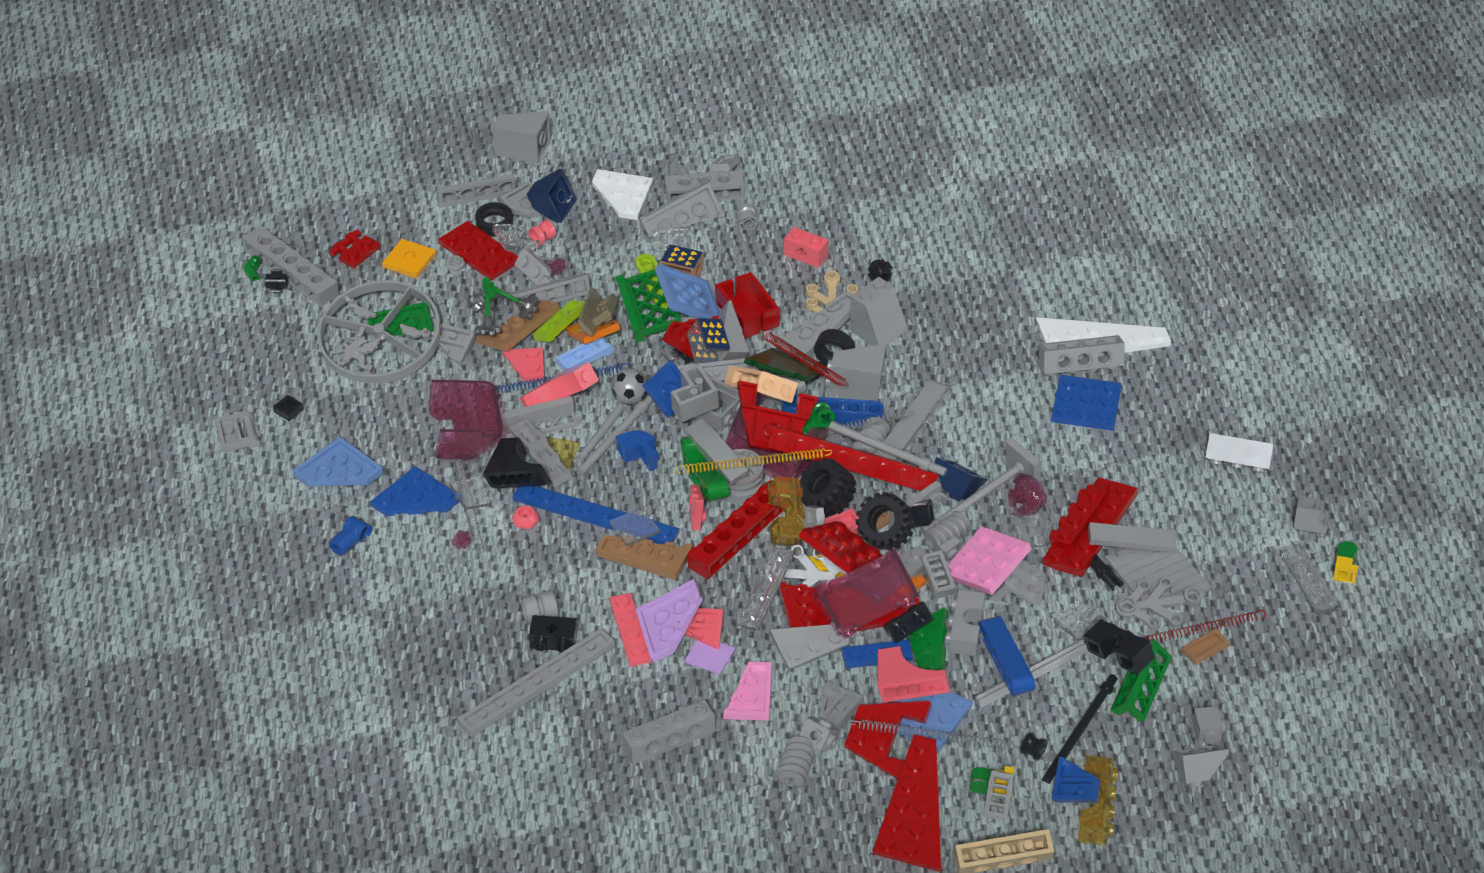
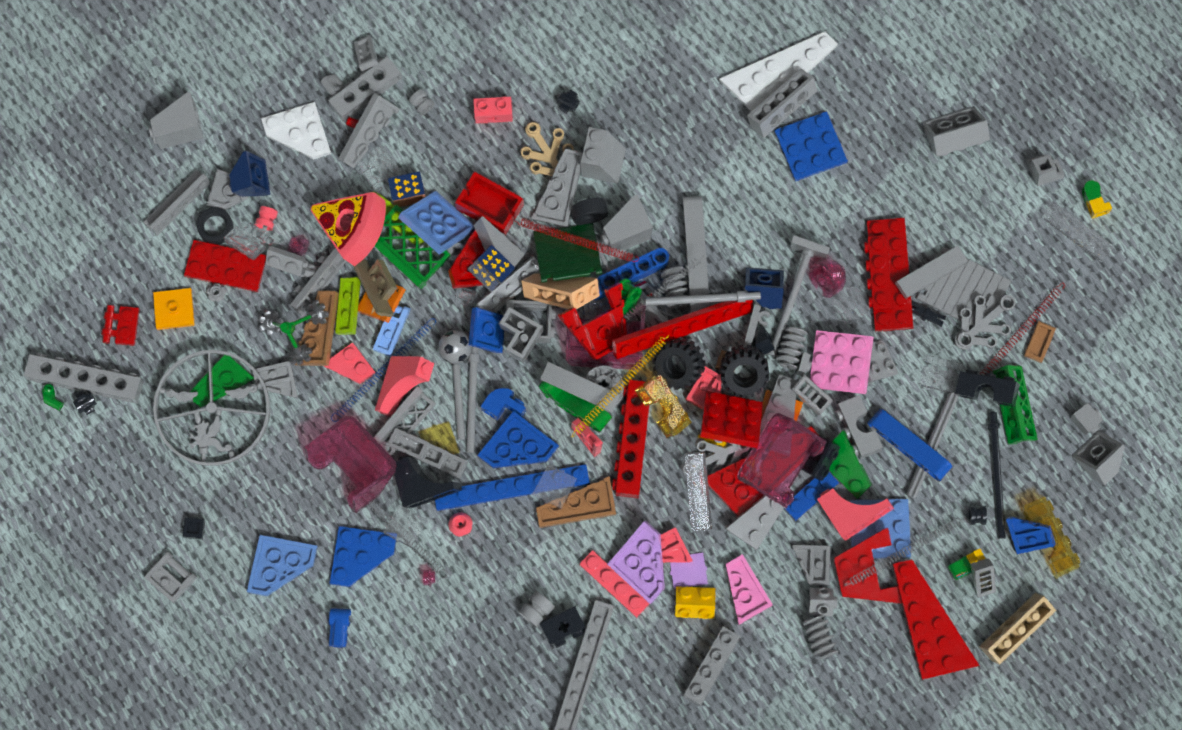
camera: 30 degrees left, 30 degrees up
(616, 263) = (352, 223): none -> coral piece
(627, 484) = (517, 444): none -> blue plate
(694, 679) = (695, 602): none -> yellow bracket
(813, 516) = (690, 400): light grey plate -> none

